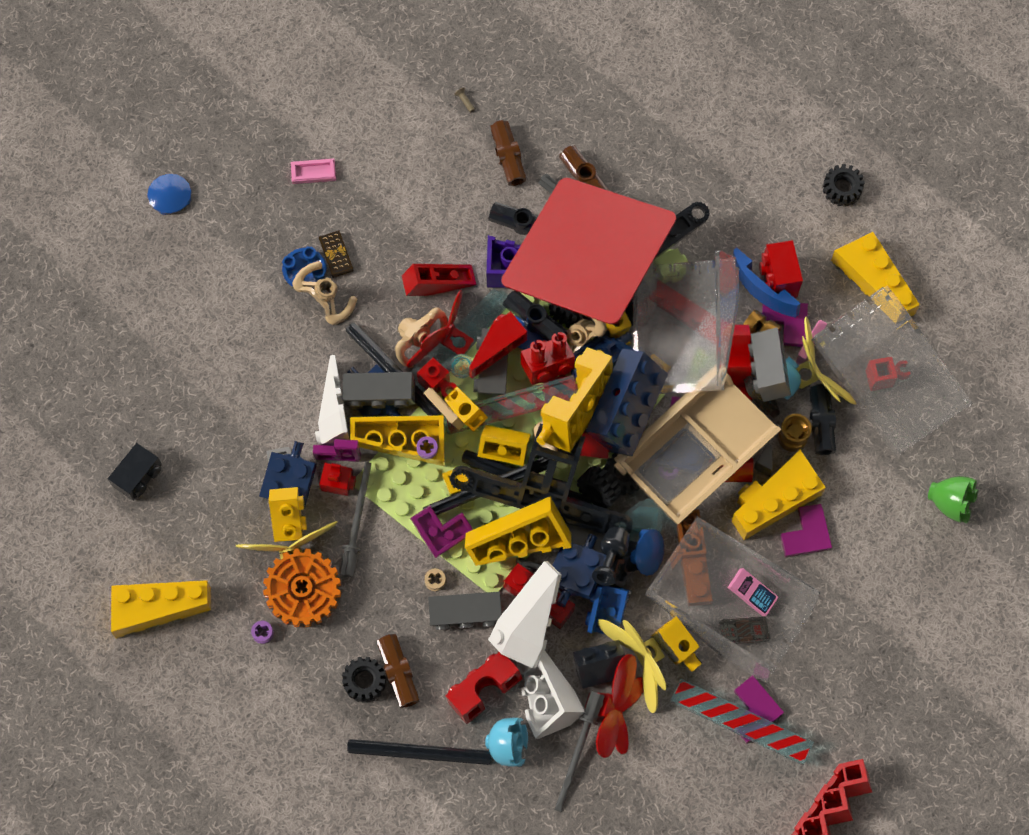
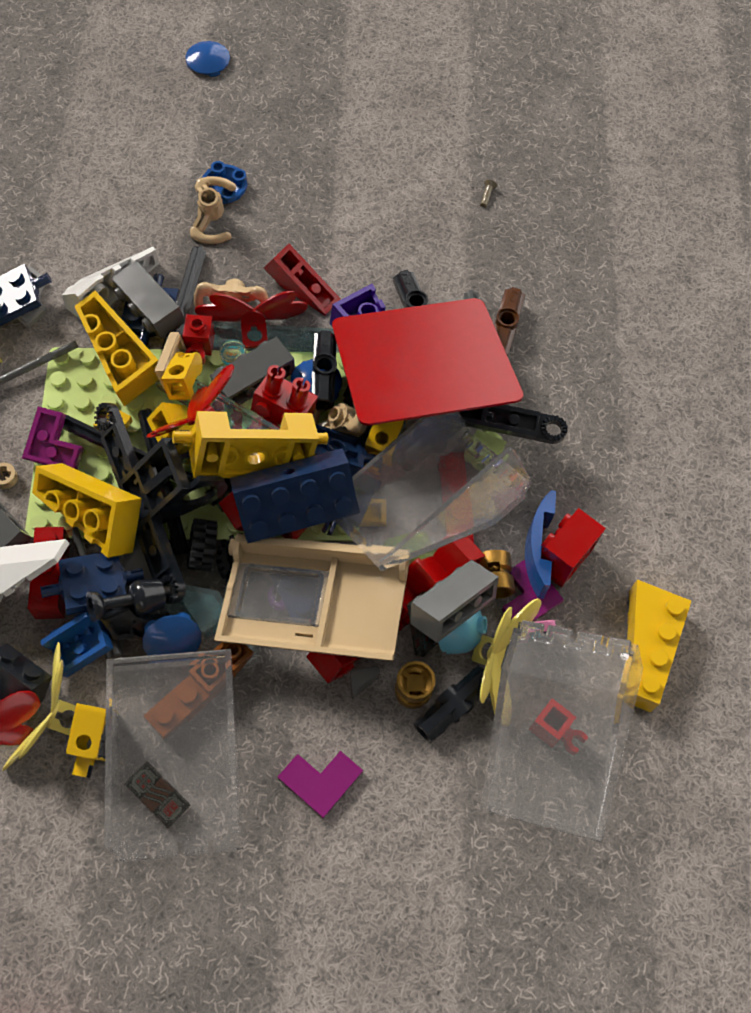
camera: 45 degrees right, 5 degrees down
(313, 171) = (318, 134): bright pink tile -> none
(336, 254) = (258, 197): dark brown tile -> none
(337, 479) = (41, 331): red brick -> none
(341, 451) = (68, 314): magenta tile -> none
(422, 453) = (112, 375): medium lavender bush -> none
(502, 338) = (264, 351): red slope -> none
(507, 415) = (199, 402): none -> red piece
(508, 153) = (468, 253): reddish brown piece -> none
(742, 722) = (50, 871): tile -> none
(747, 492) = (313, 689): yellow plate -> none
(752, 592) = (205, 771): tile -> none
(758, 701) = (80, 882): magenta tile -> none
(781, 495) = (332, 720): yellow wedge -> none
(847, 174) = (730, 542): black tyre -> none
(954, 497) = (483, 907): bright green piece -> none

